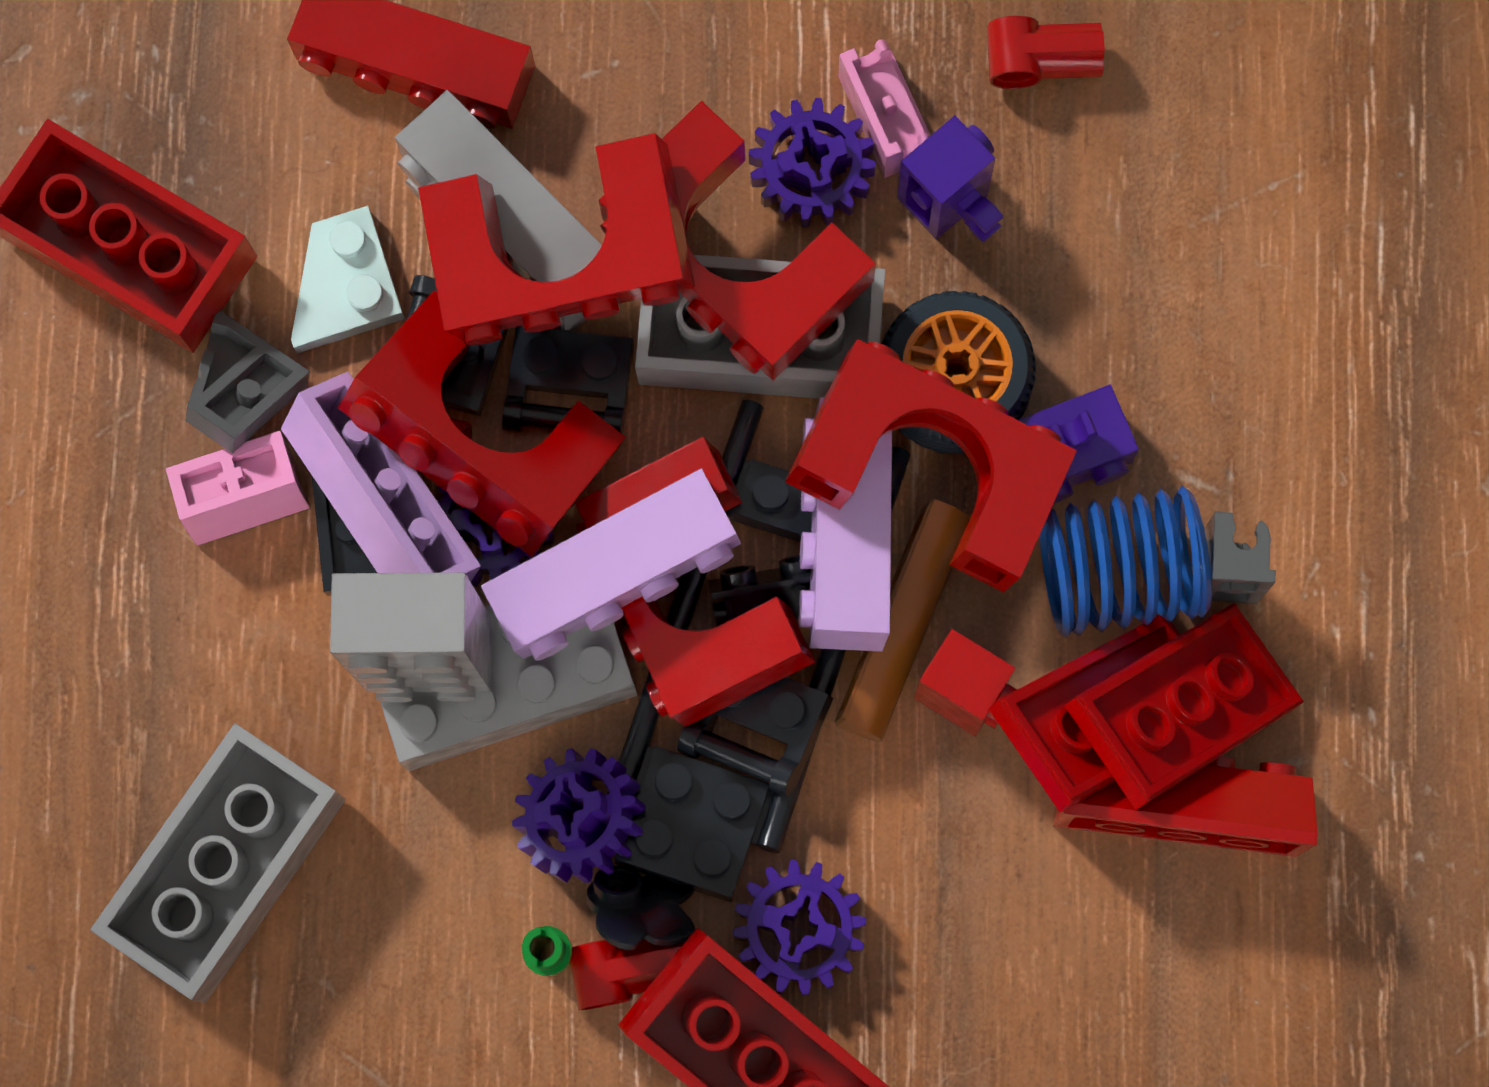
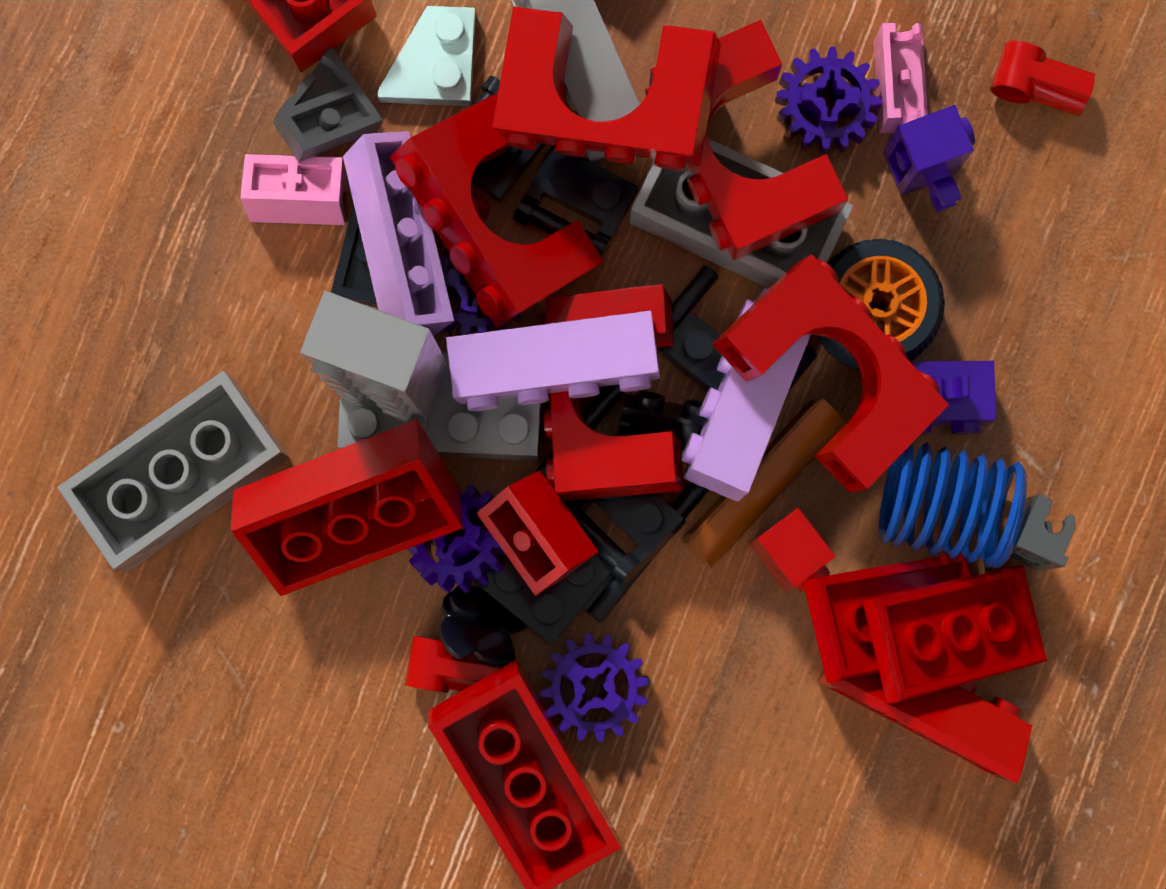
camera: 20 degrees right, 5 degrees up
(437, 827) = (347, 508): none -> red brick
(536, 940) = (384, 629): green pin -> none
(666, 770) = (537, 532): none -> red brick

